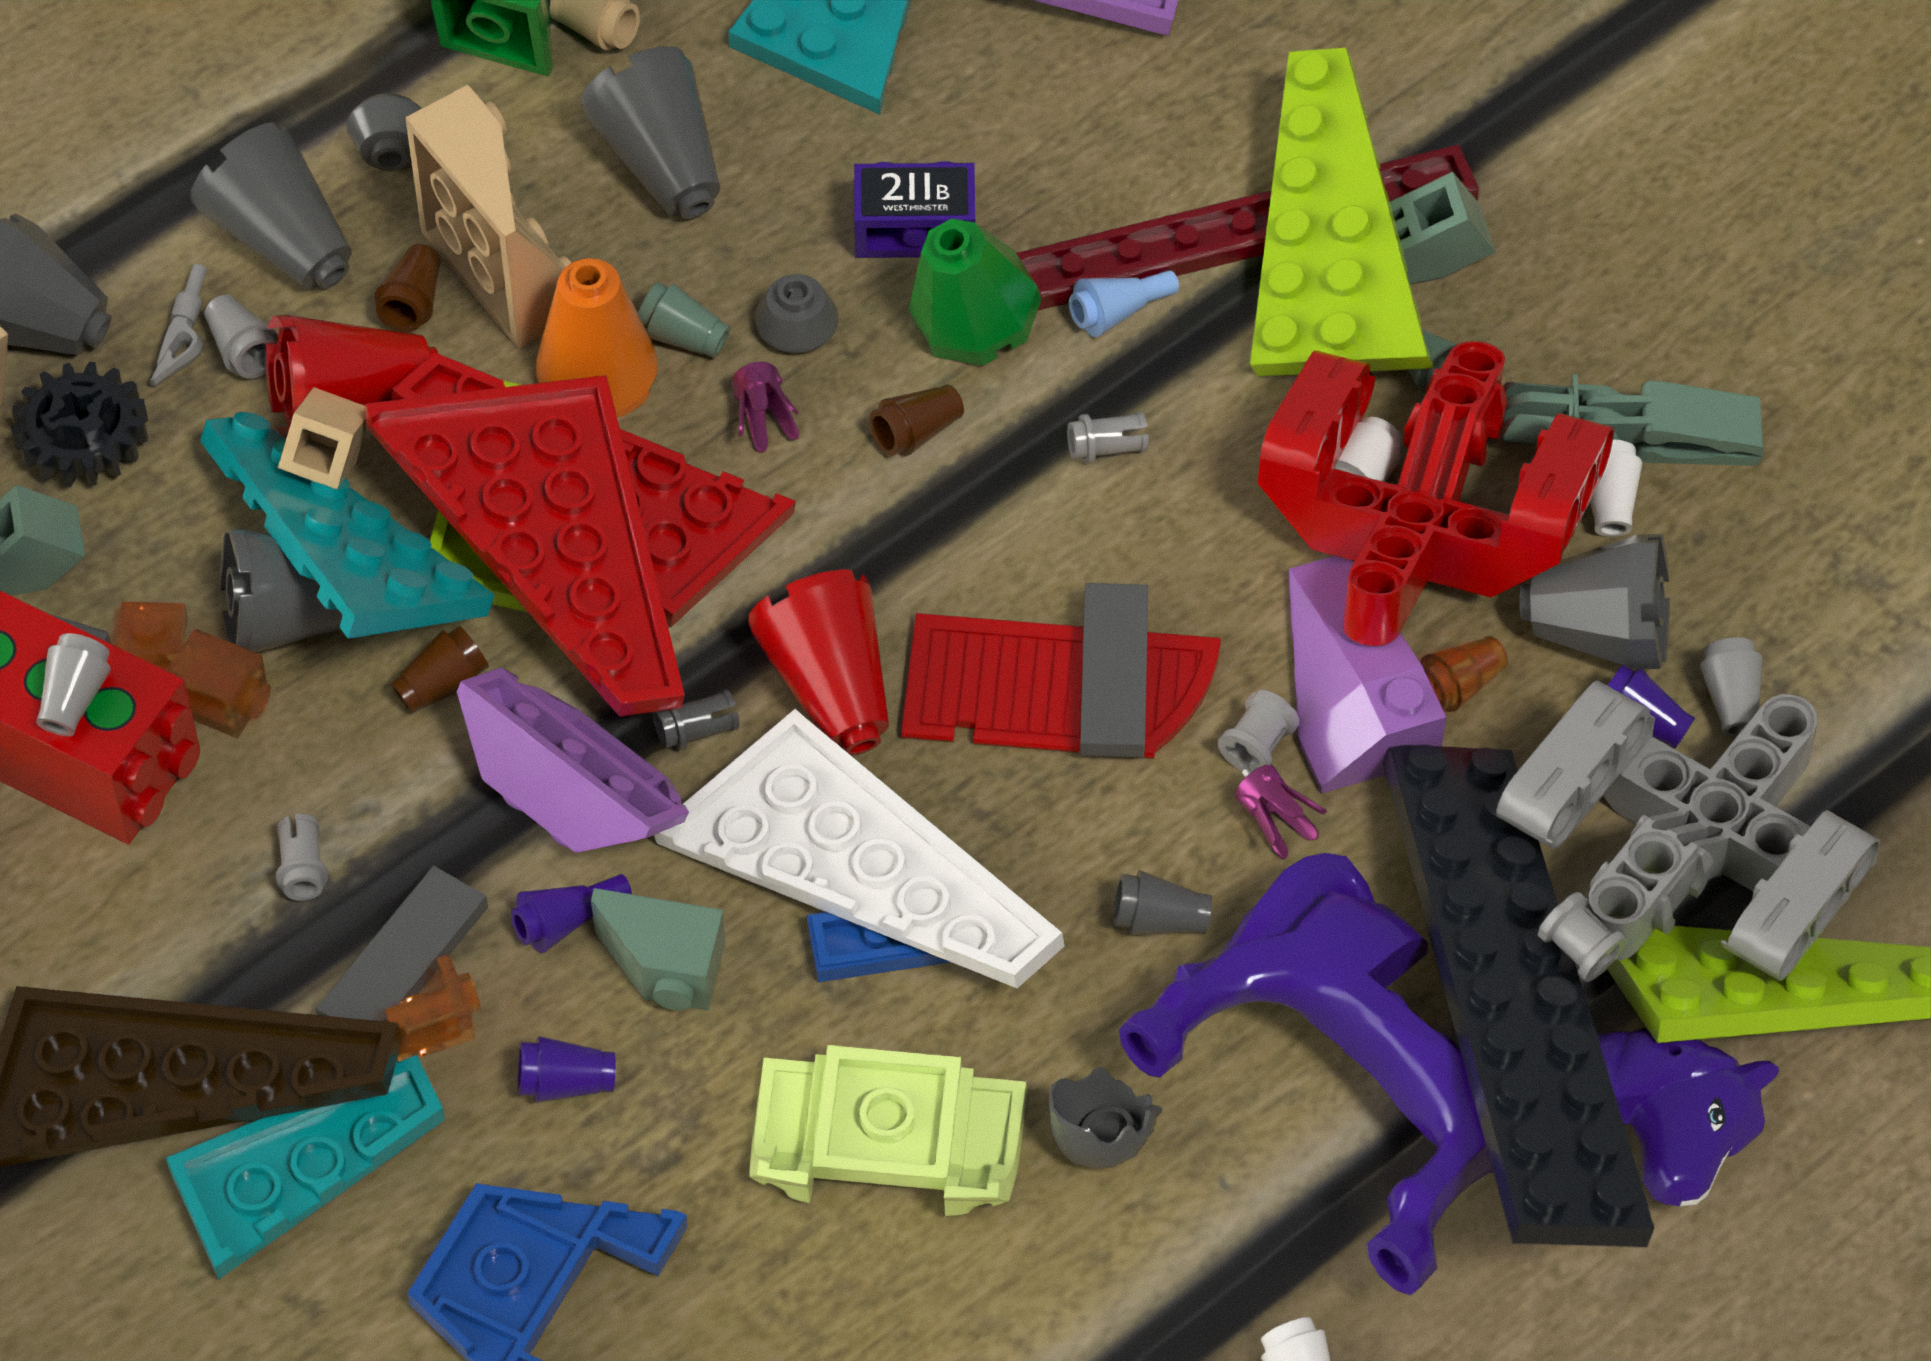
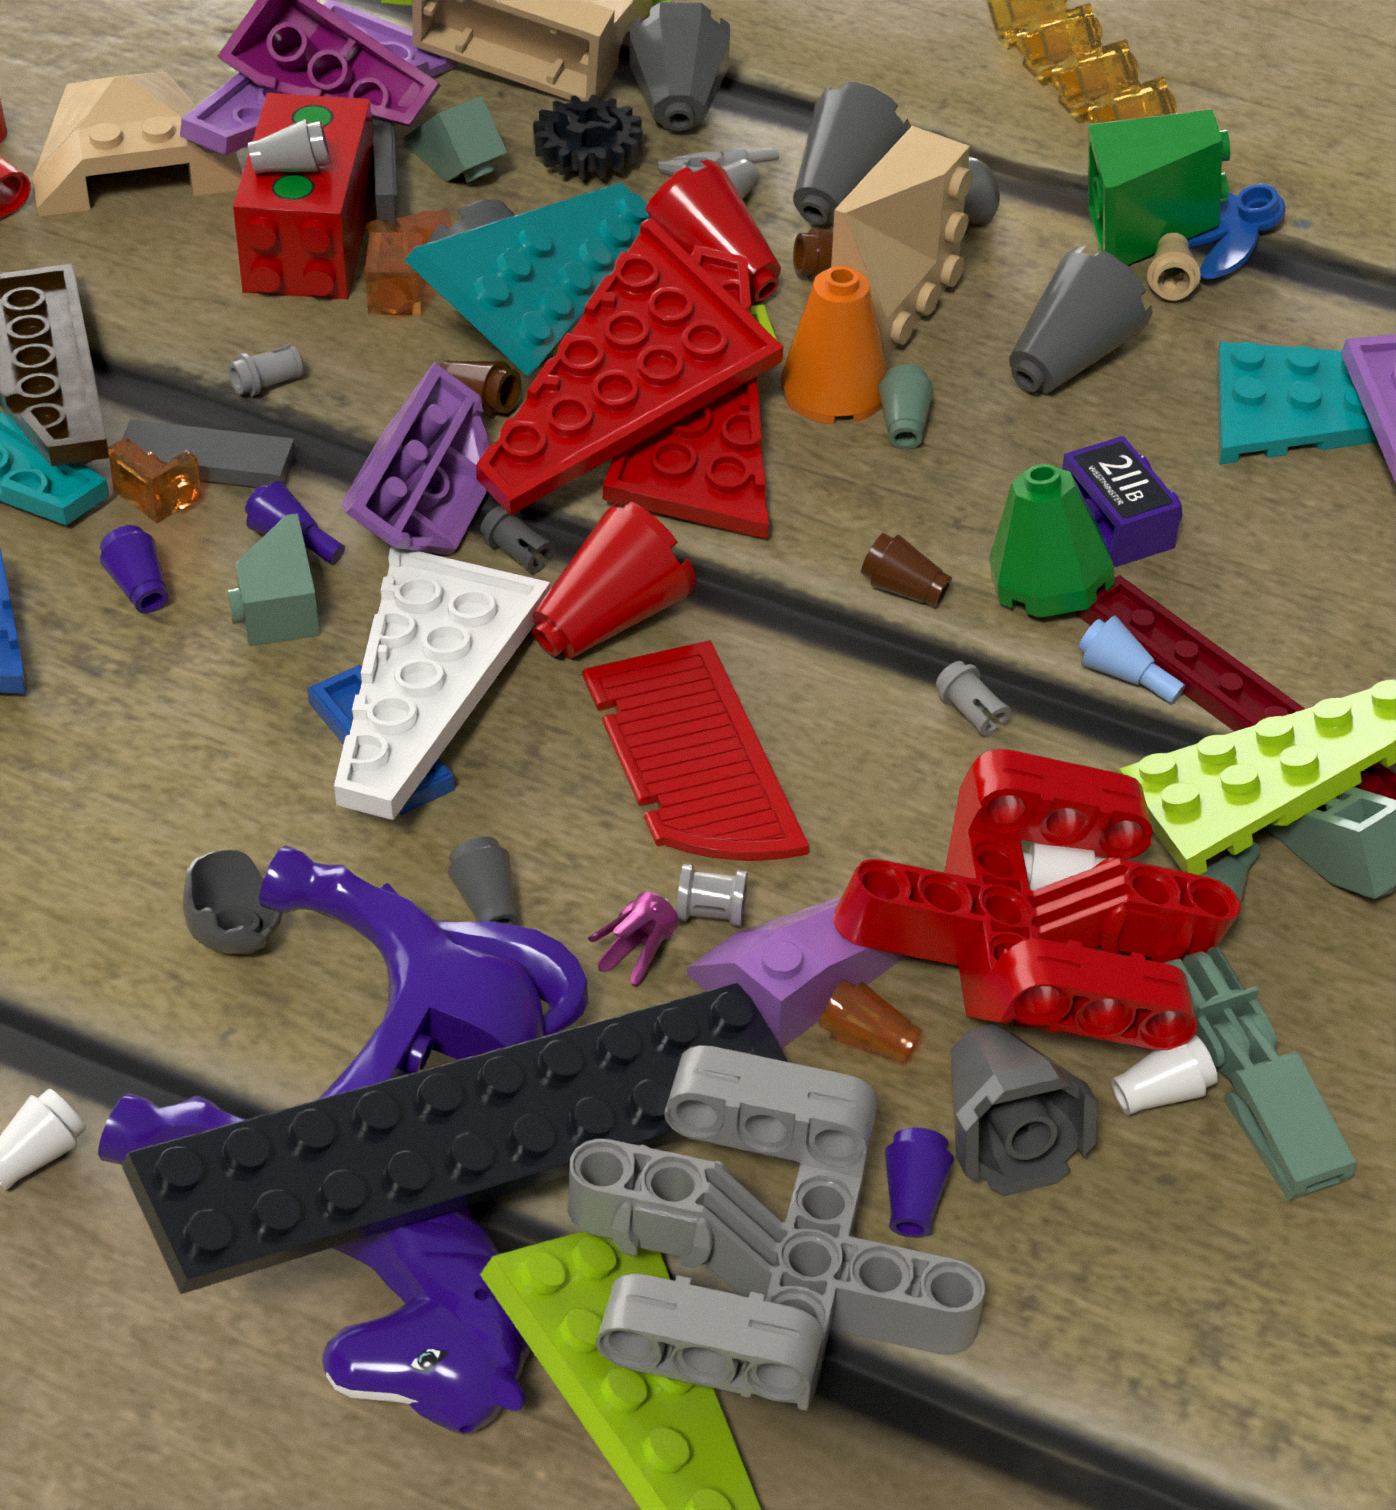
camera: 65 degrees right, 10 degrees down
(324, 438) = (615, 220): tan brick -> none
(757, 390) = (869, 471): flat silver piece -> none
(796, 315) = (964, 470): dark grey cone -> none
(888, 1124) = (169, 780): yellowish green piece -> none
(1114, 670) = (721, 777): dark grey tile -> none
(1582, 936) = (539, 1147): light grey bush -> none
(1733, 680) = (998, 1242): light grey cone -> none

